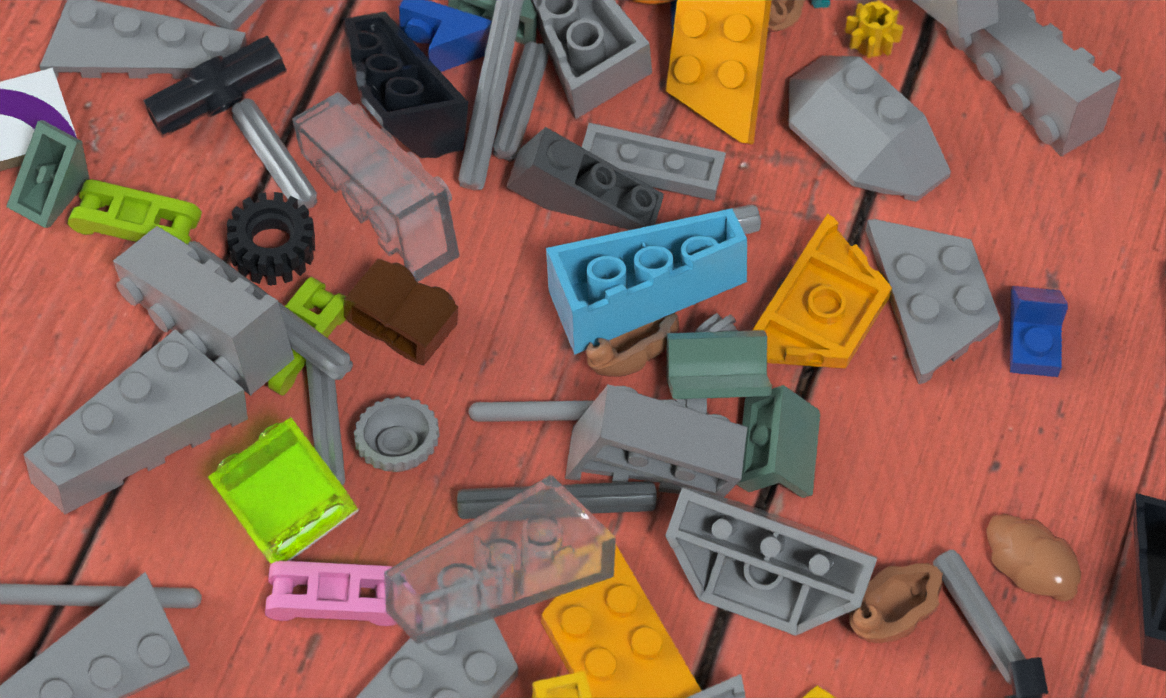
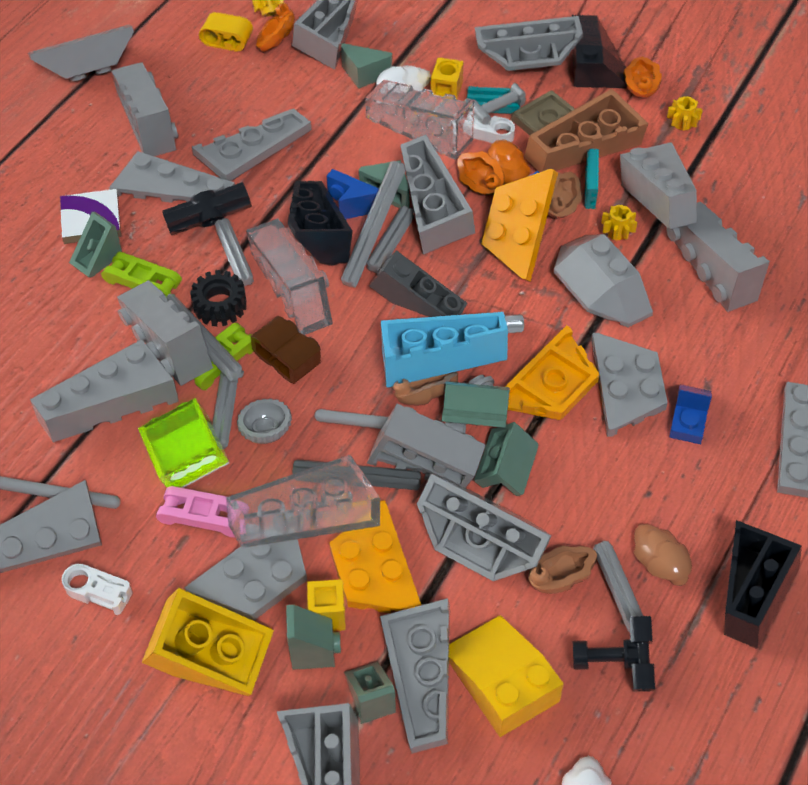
camera: 15 degrees right, 5 degrees down
(658, 161) = (467, 282): light grey plate -> none

